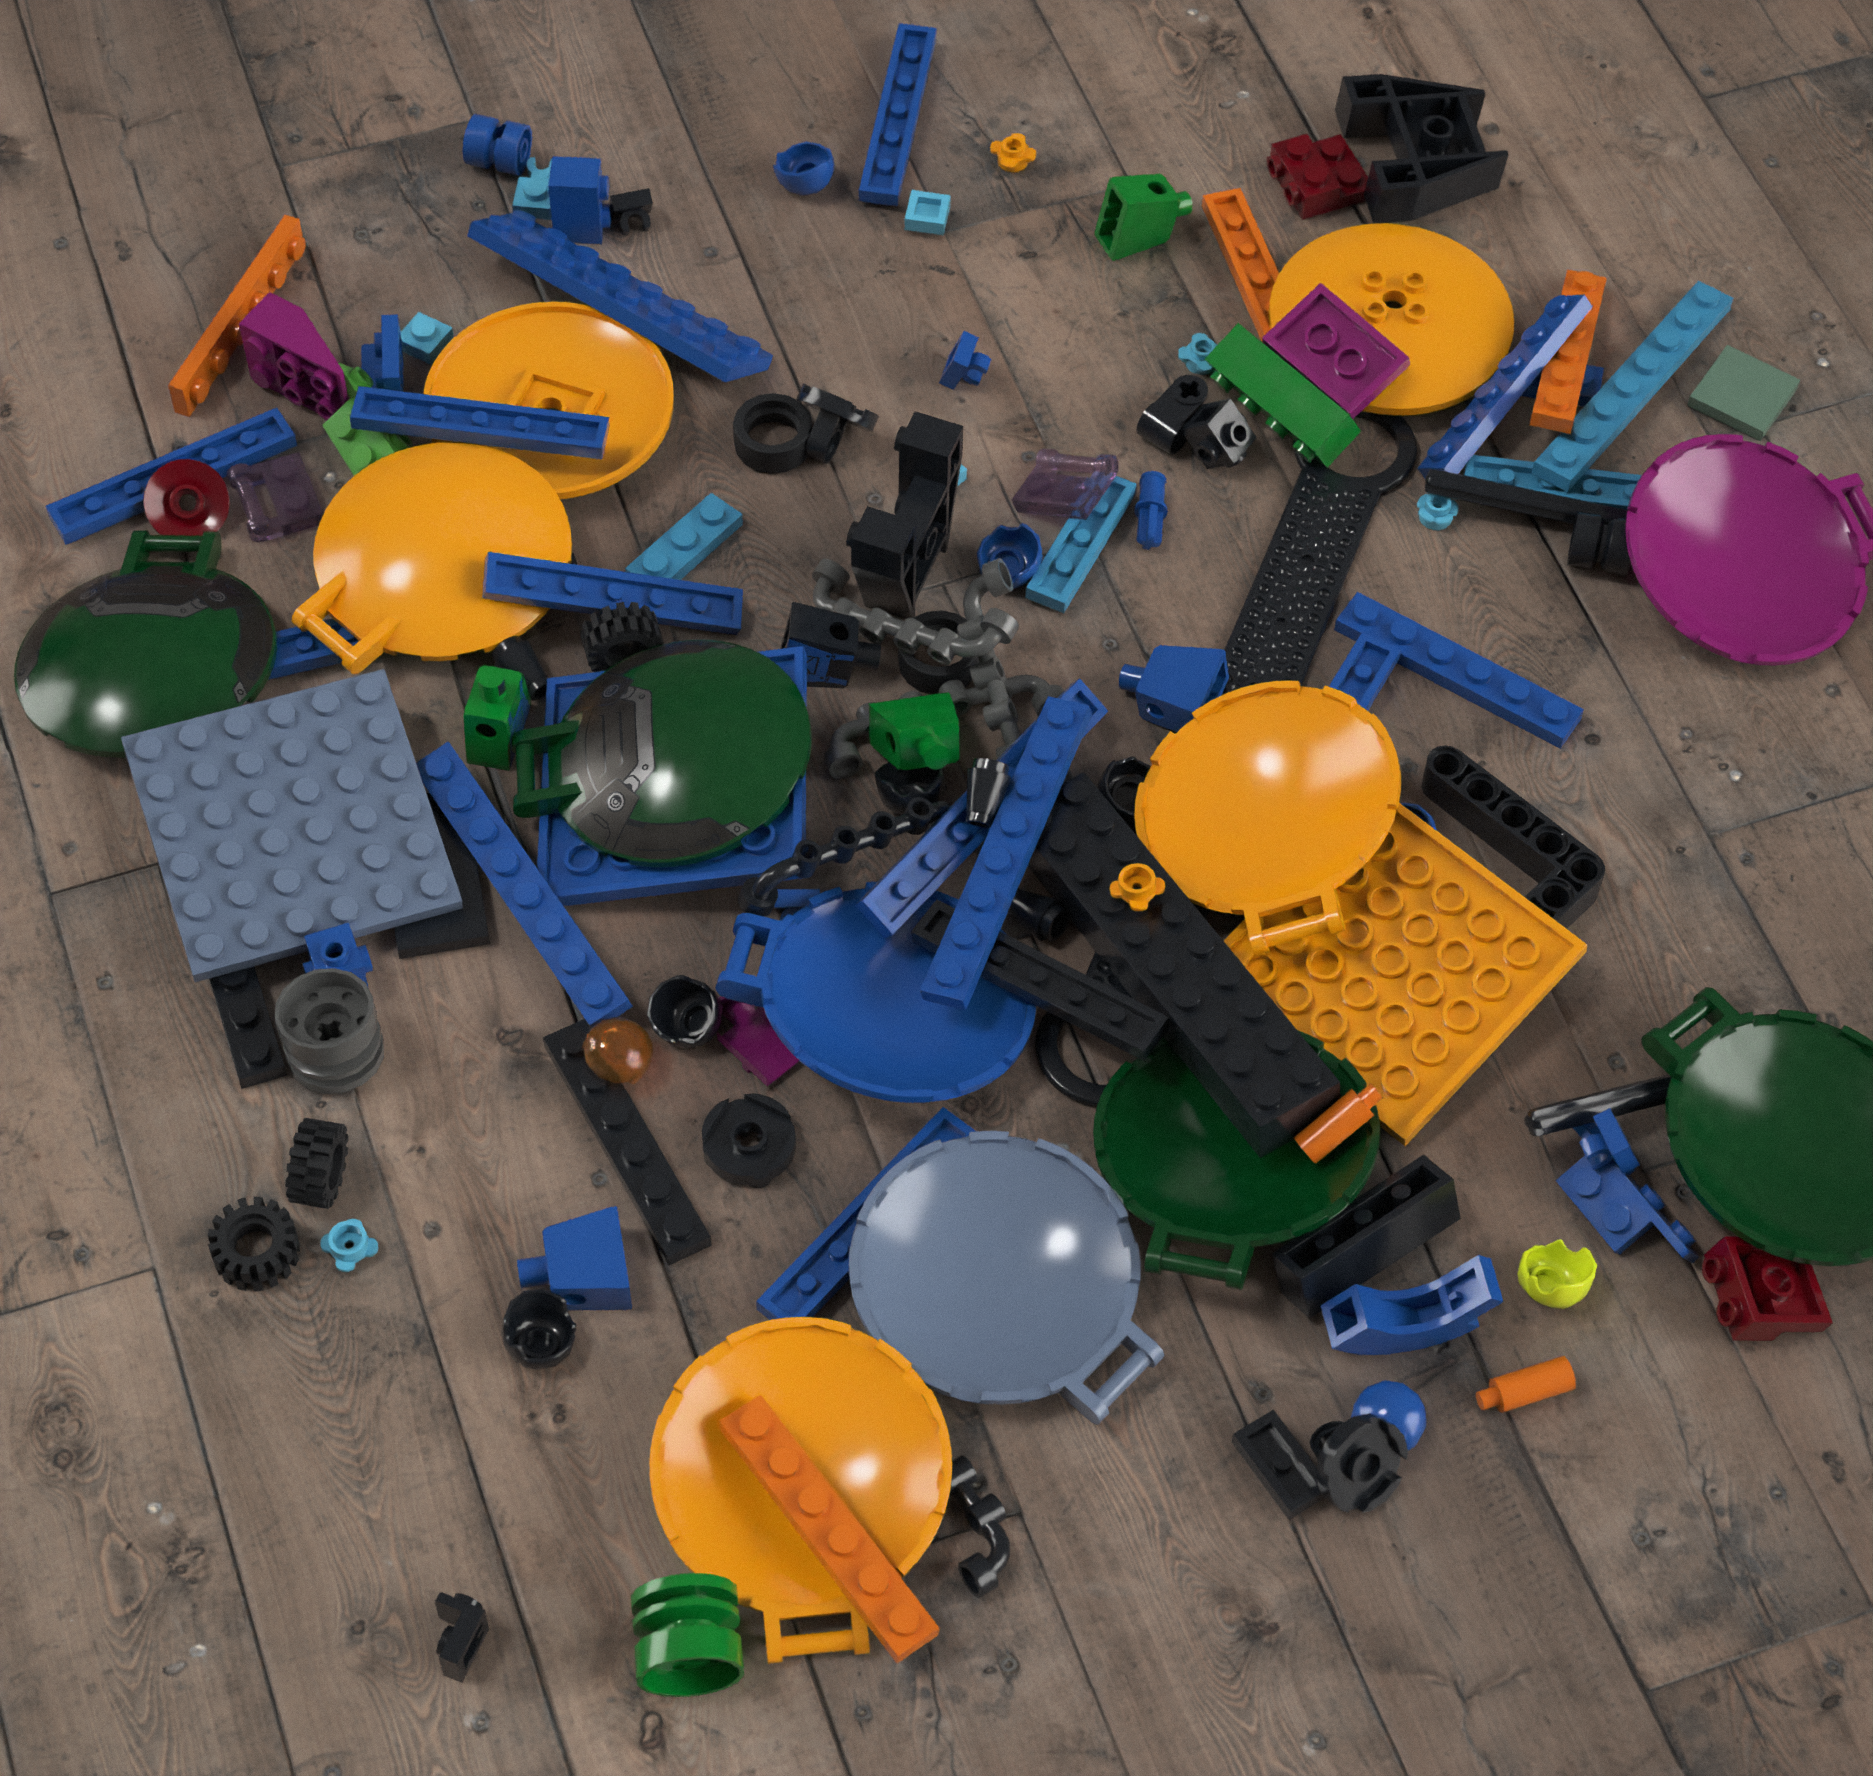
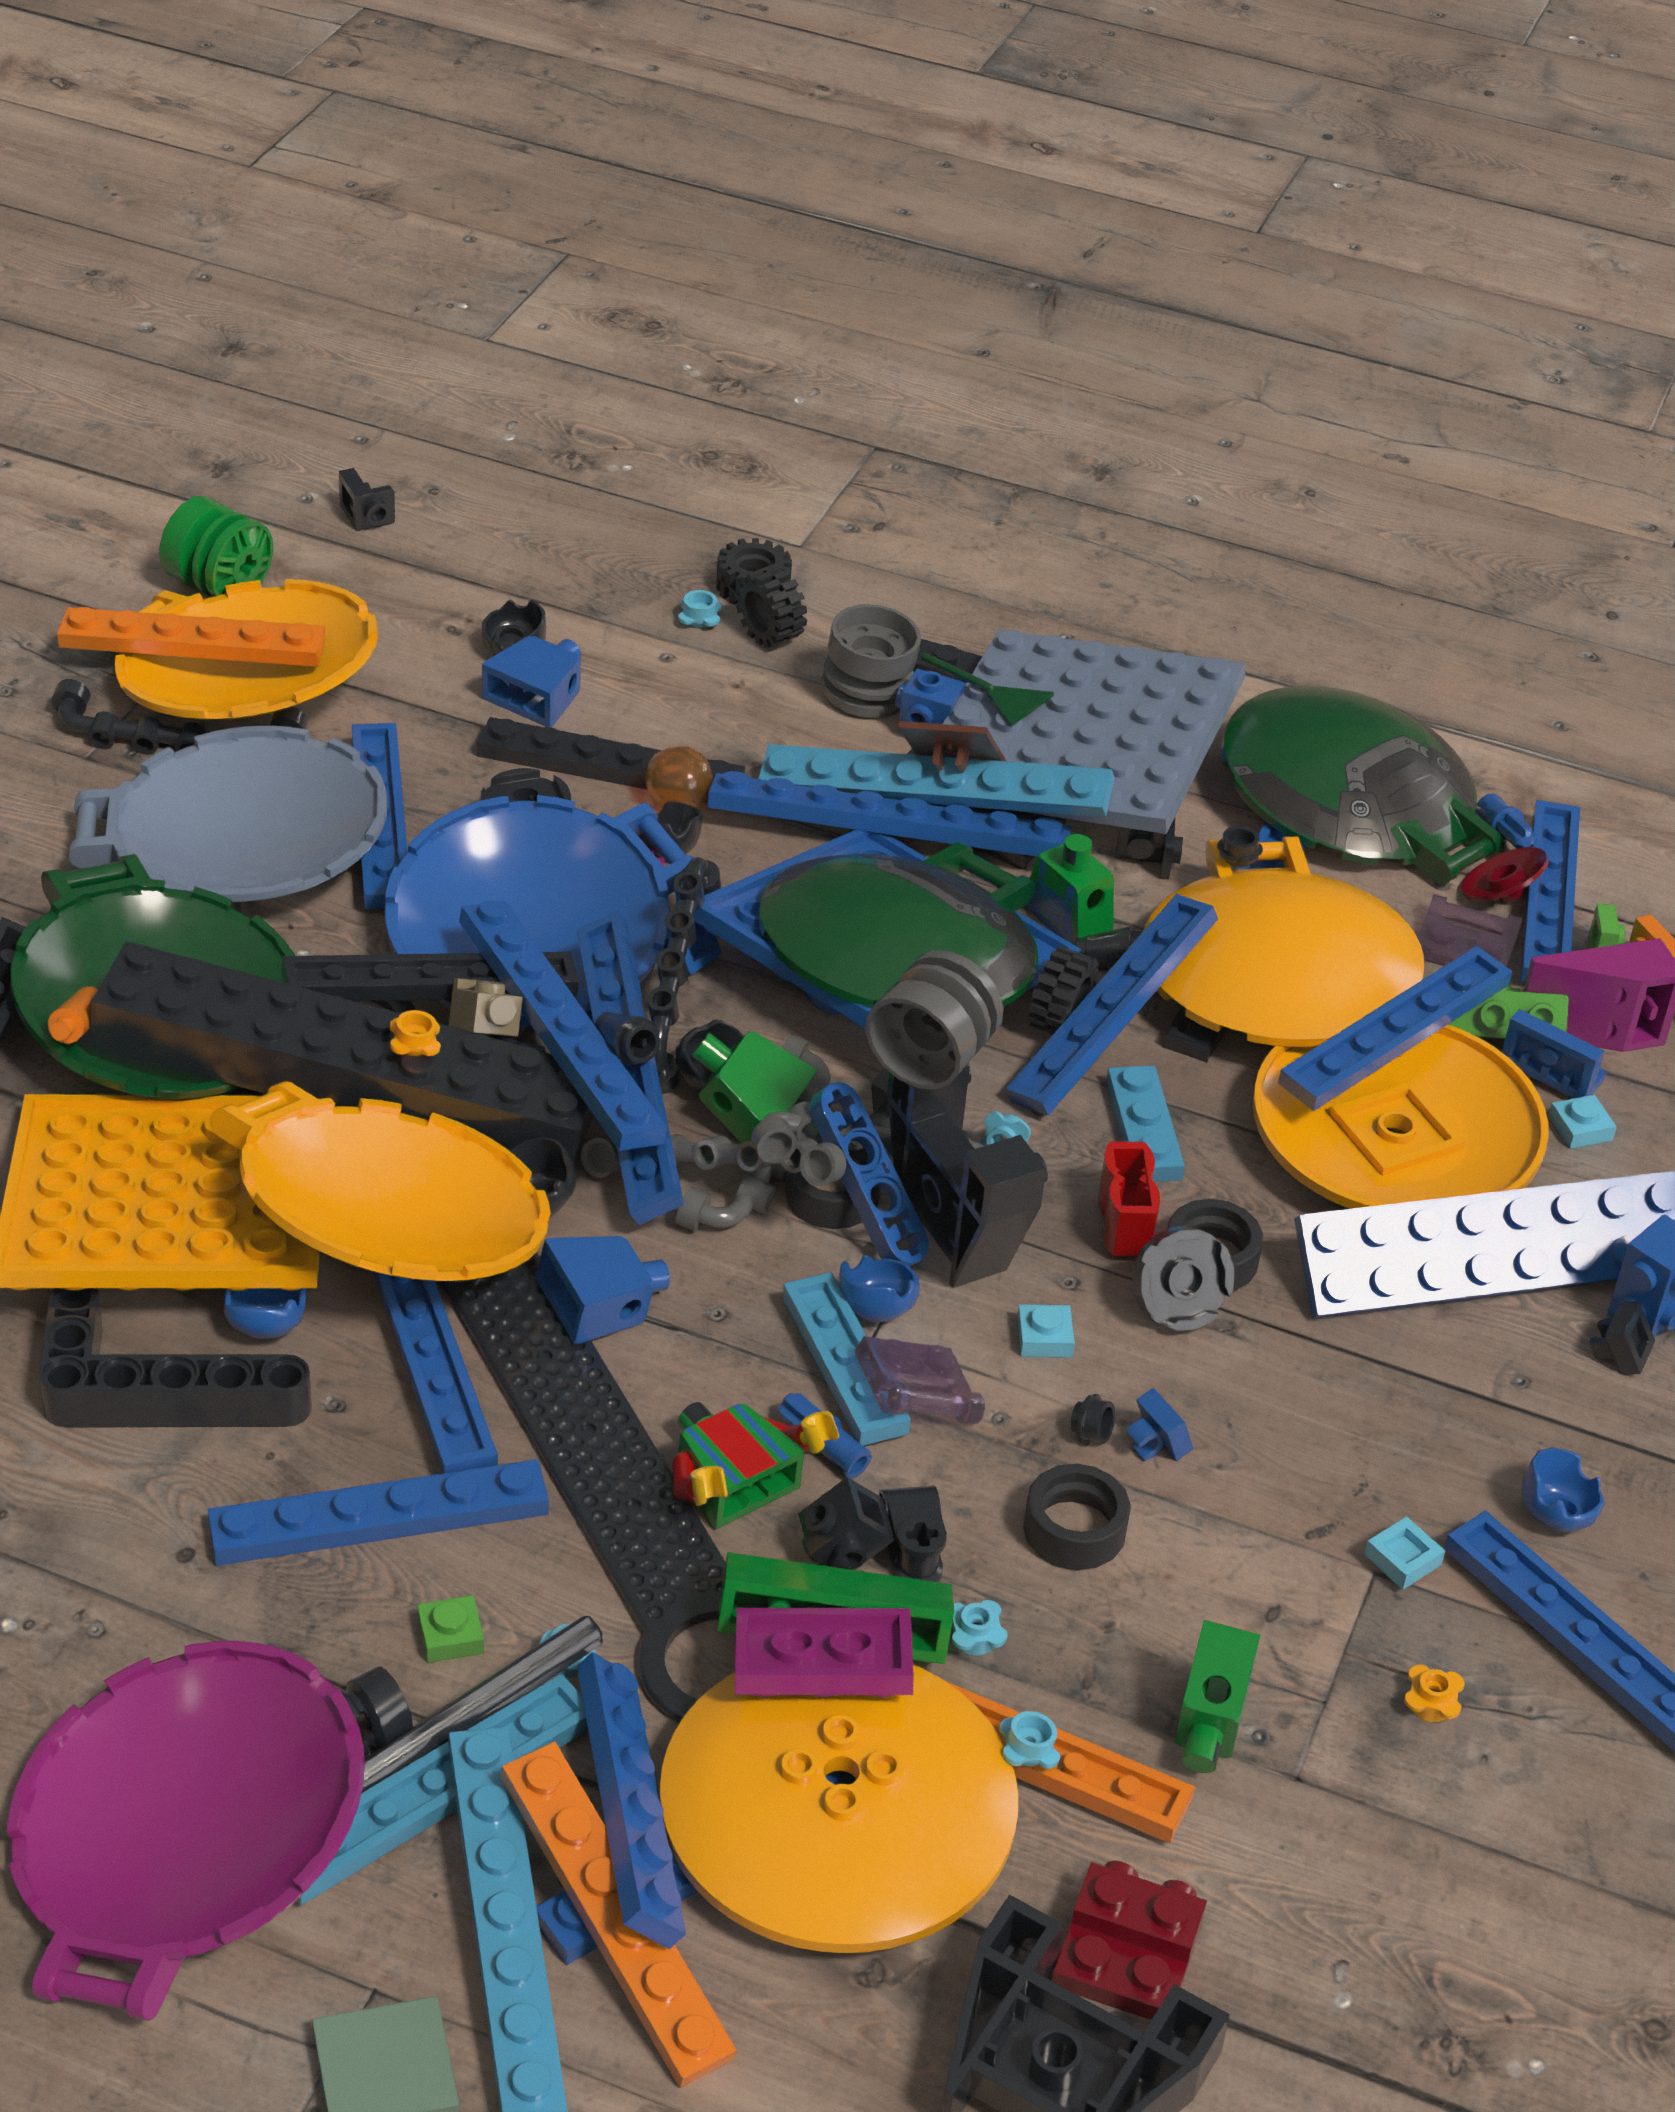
camera: 130 degrees right, 15 degrees down
(112, 537) = (1506, 820): none -> blue axle
(203, 416) = (1605, 927): none -> bright green plate
(307, 876) = (1011, 702): none -> dark green piece
(359, 608) = (1240, 846): none -> black plate
(443, 835) = (951, 741): none -> copper piece
(462, 869) = (982, 785): none -> dark azure plate
(790, 482) = (1128, 1197): none -> red brick
(792, 590) = (1006, 1125): none -> medium azure plate
(882, 502) = (934, 1019): none -> dark grey wheel
(942, 597) = (876, 1173): none -> blue beam
(989, 399) = (1093, 1419): none -> black plate
(1039, 909) = (484, 1007): none -> dark tan brick
(1081, 335) = (1071, 1547): none -> black tyre
(1229, 522) = (742, 1459): none -> torso
(1267, 259) = (1030, 1740): none -> medium azure plate
(1487, 572) = (450, 1628): none -> bright green plate

